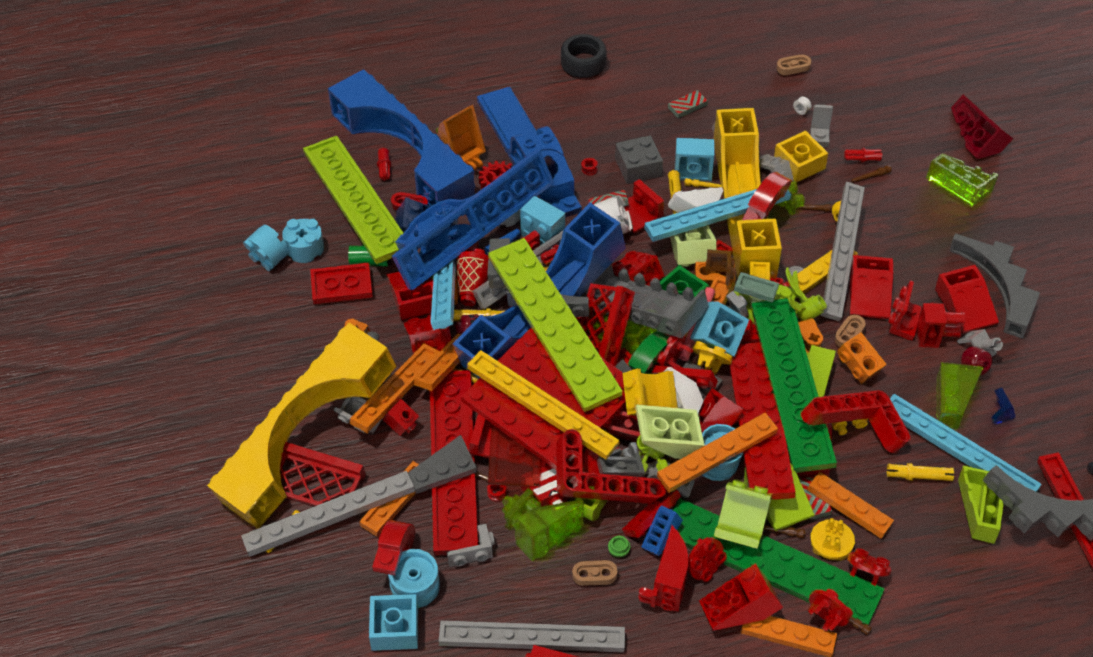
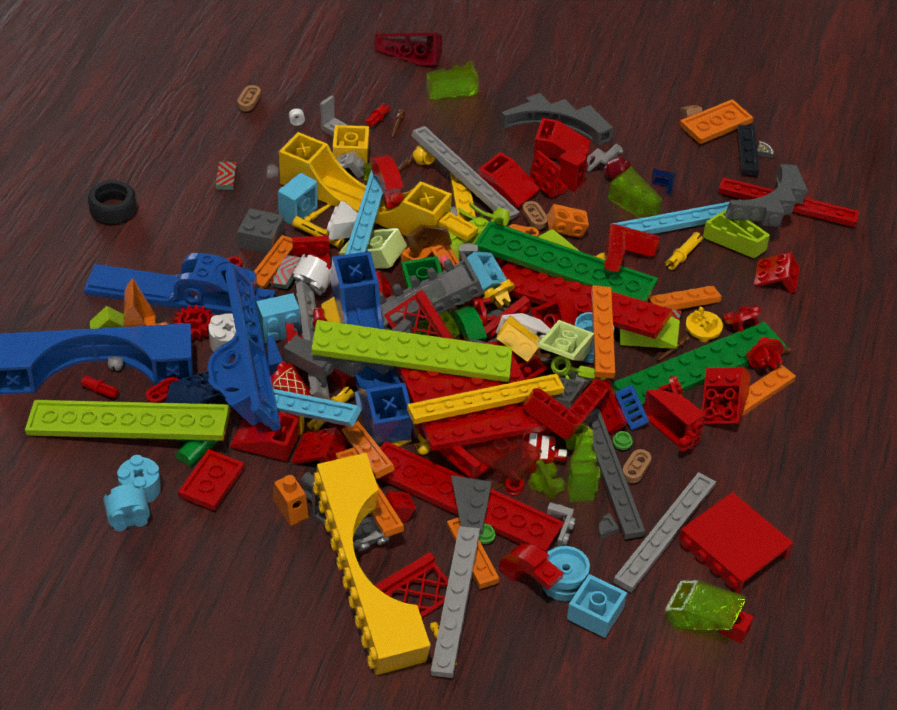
camera: 60 degrees left, 5 degrees down
(414, 157) = (115, 362): none -> light grey hinge
(423, 499) = (488, 534): none -> bright green plate
(504, 587) = (607, 526): none -> dark grey tile
(562, 563) = (614, 478): none -> dark grey plate
(595, 188) = (272, 261): none -> orange plate
(743, 514) = (661, 350): lime panel -> none
(756, 287) = (469, 229): sand green tile -> none
(970, 569) = (776, 269): none -> red bracket

